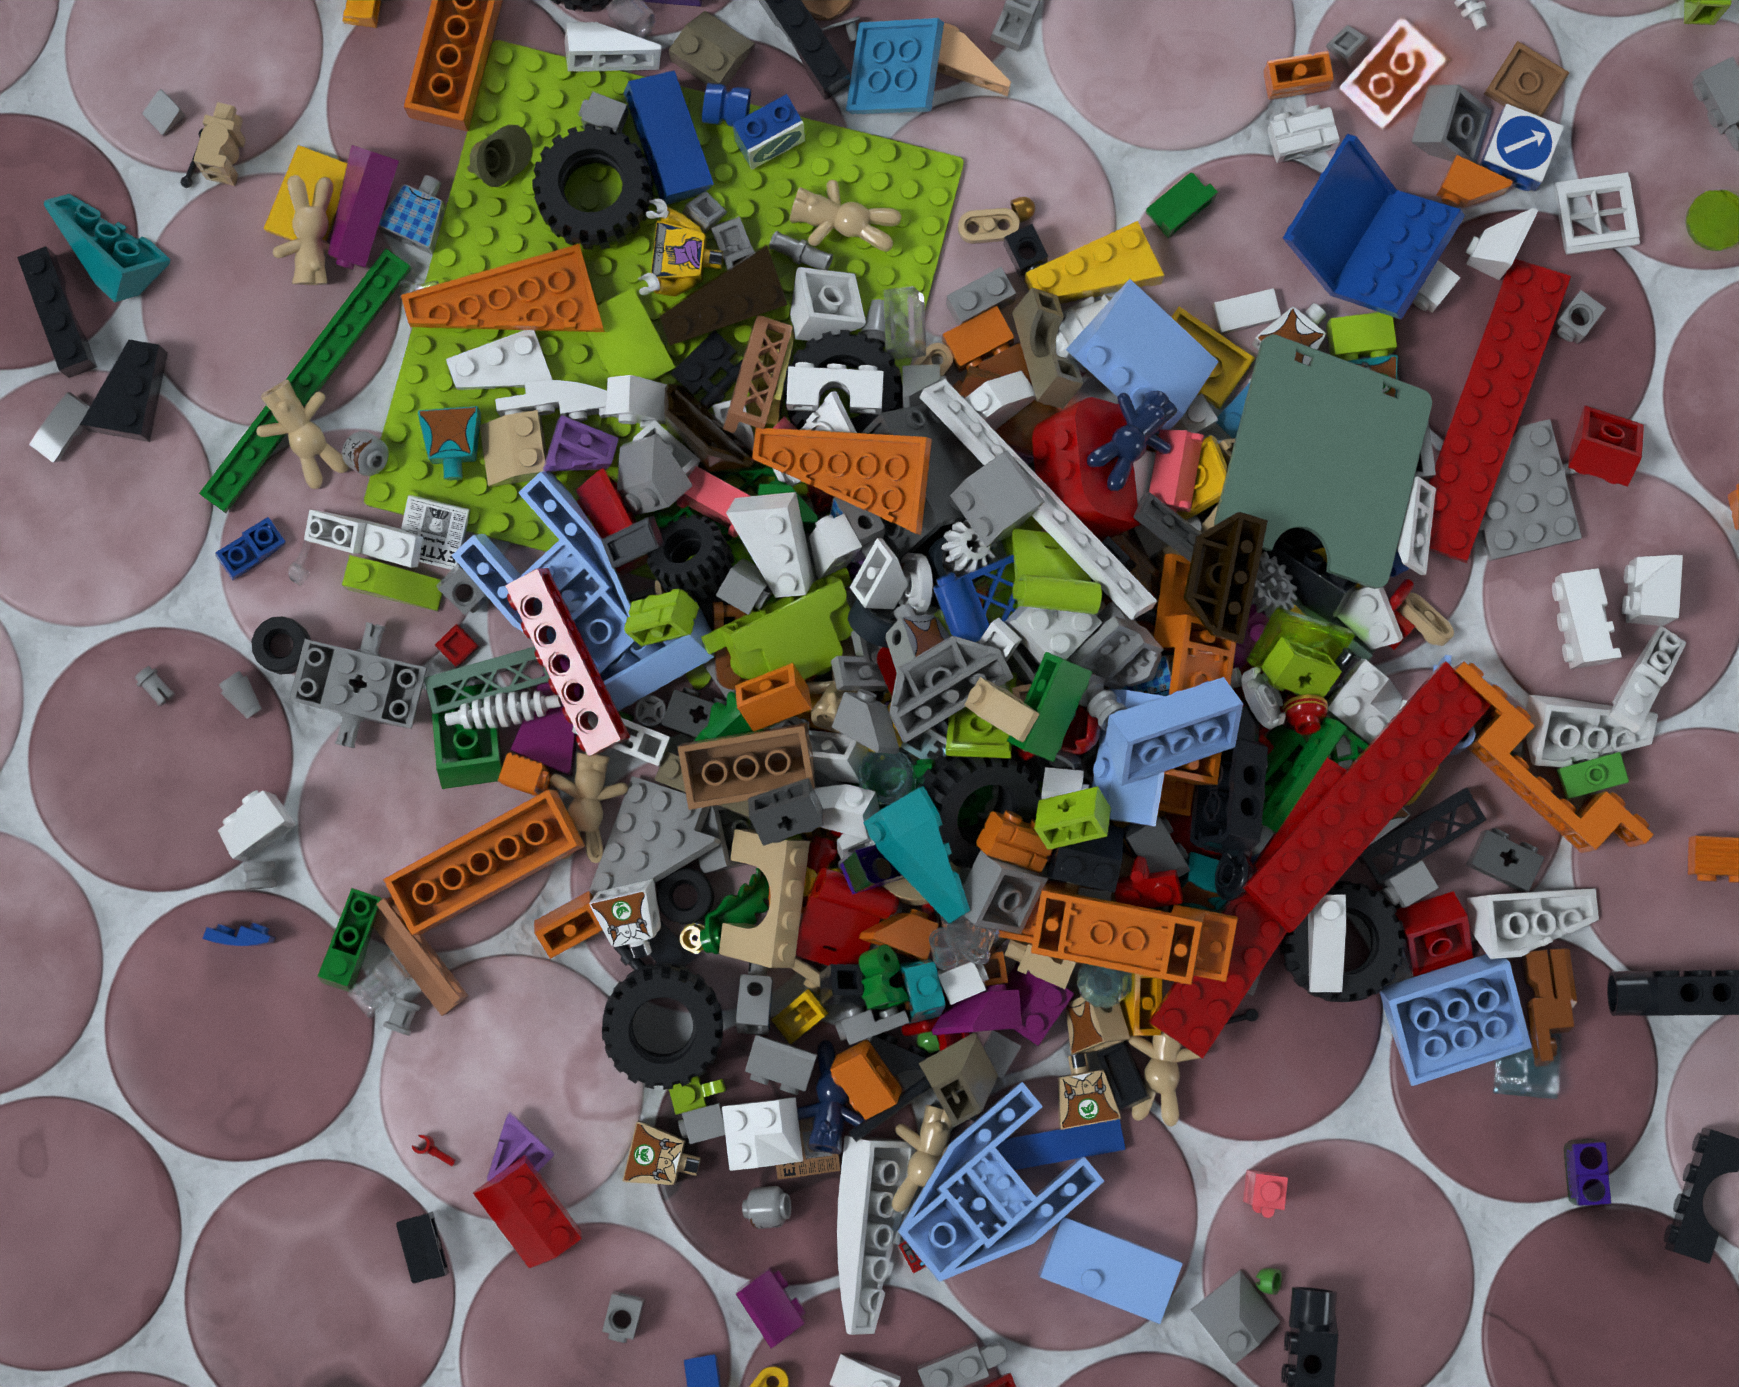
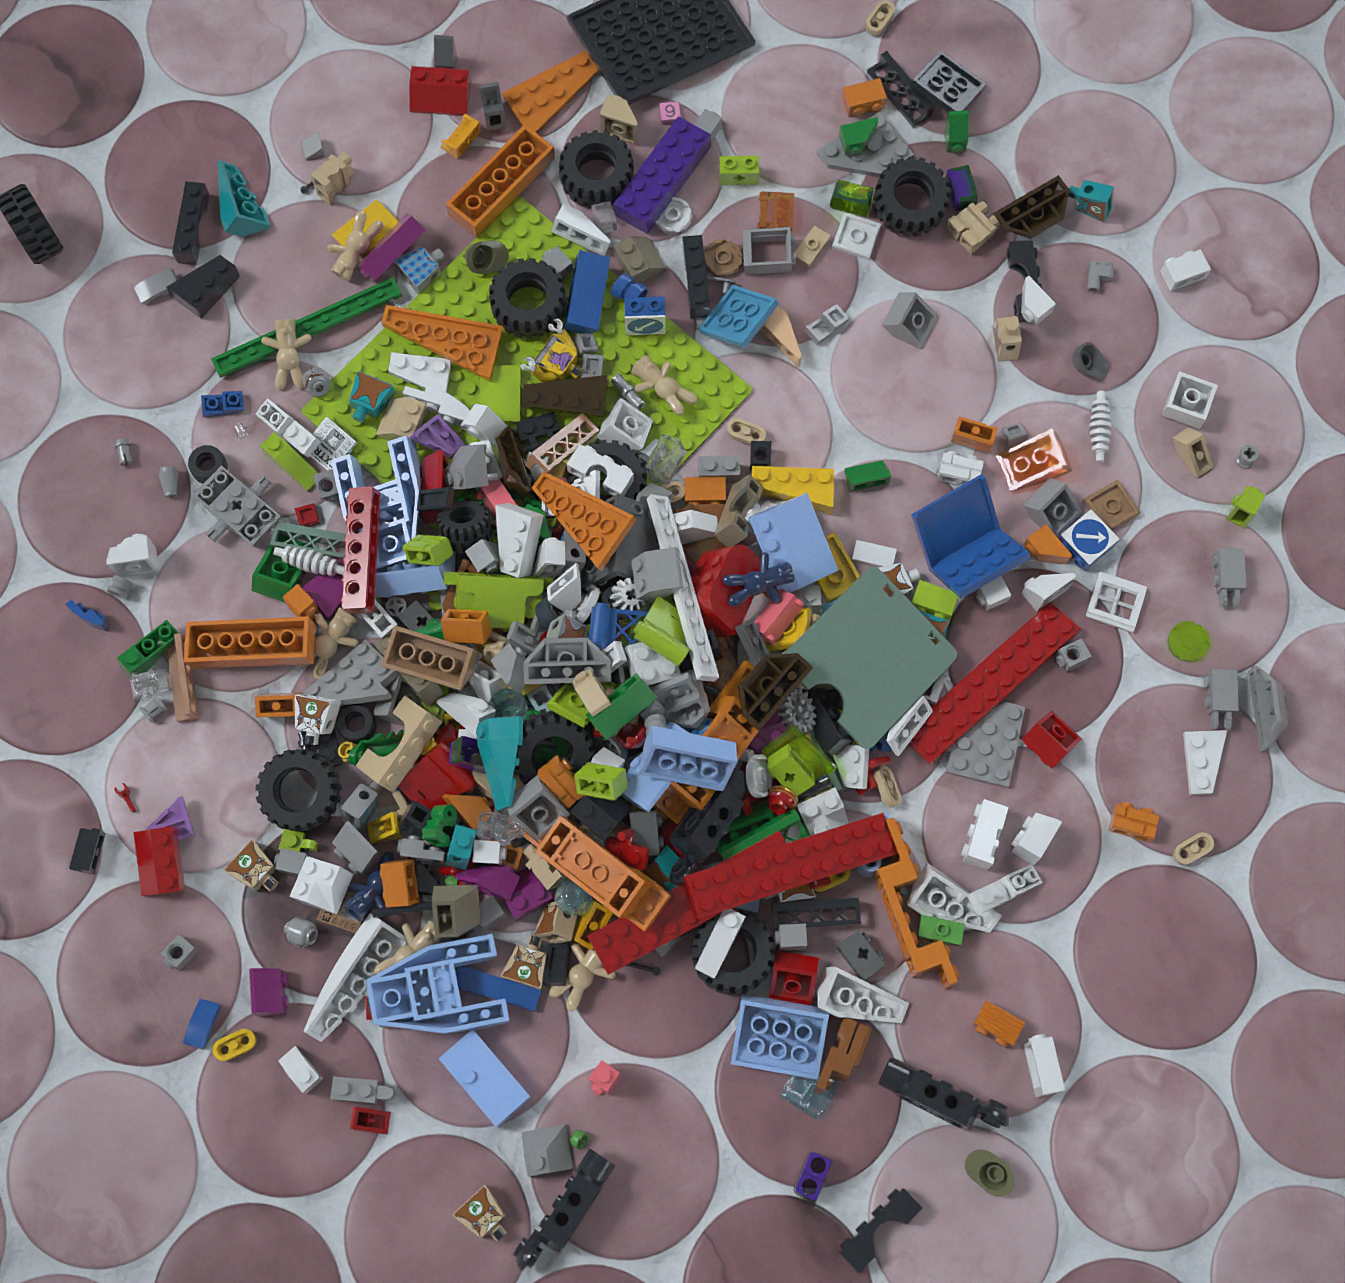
camera: 25 degrees right, 10 degrees down
(785, 812) = (435, 694): dark grey brick -> none
(1023, 207) = (772, 432): pearl gold hinge -> none

